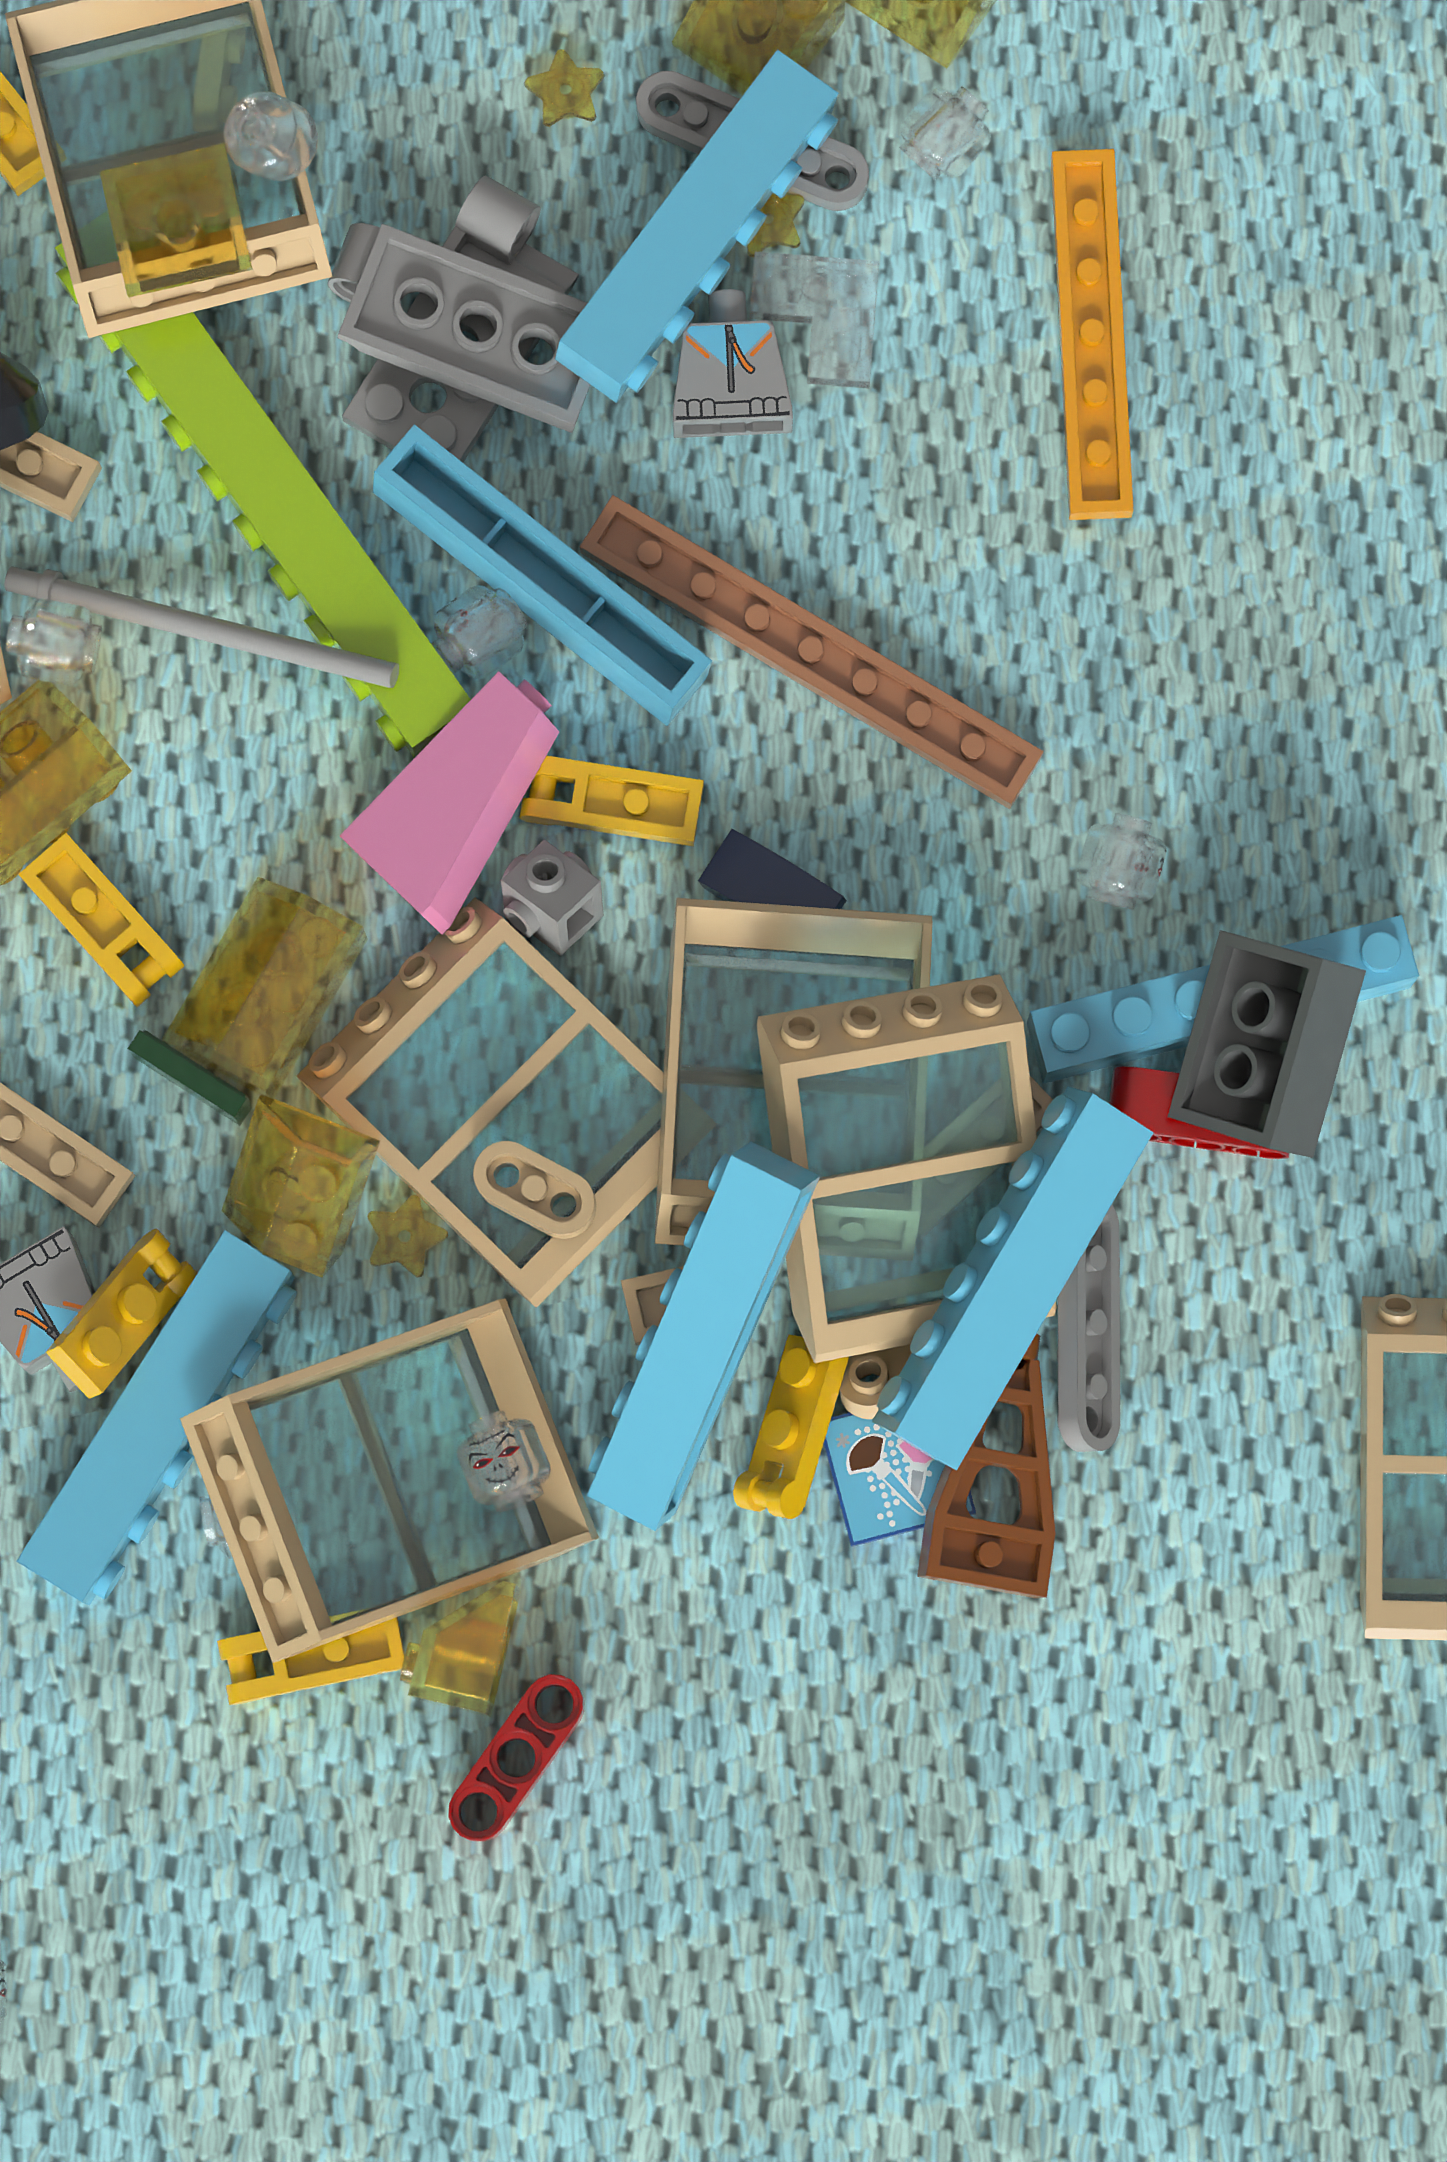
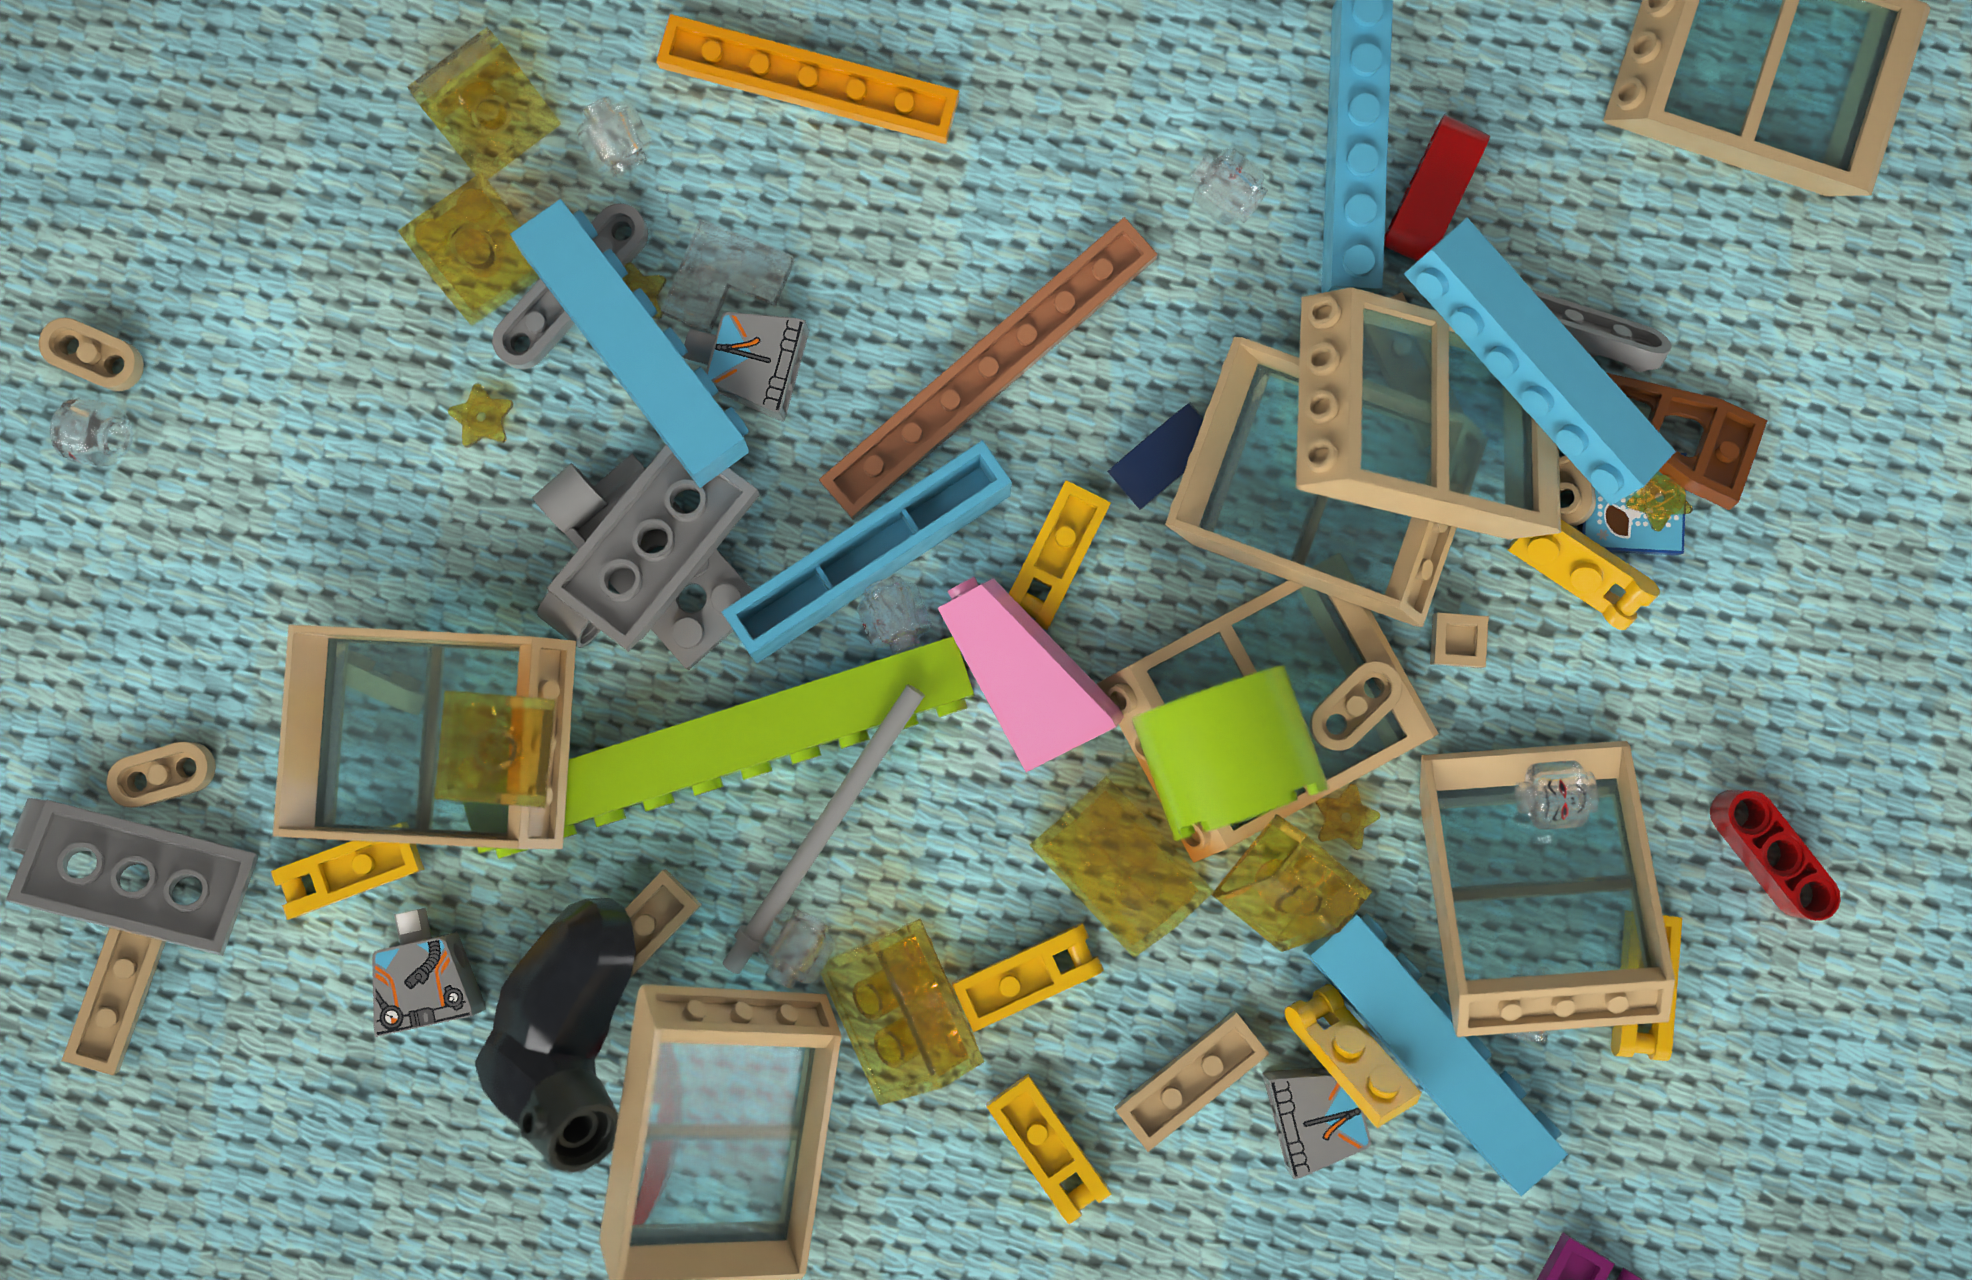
camera: 70 degrees left, 5 degrees up
(190, 1076) = (1175, 945): dark green tile -> none
(270, 136) = (450, 651): clear head -> none
(427, 1039) = (1229, 752): none -> lime brick
(464, 1653) = (1698, 872): clear yellow slope -> none
(551, 896) = (1121, 624): light grey brick -> none
(701, 1335) = (1517, 608): medium azure brick -> none
(898, 1478) = (1659, 512): none -> clear yellow plate
(1266, 1044) = (1420, 113): dark grey slope -> none

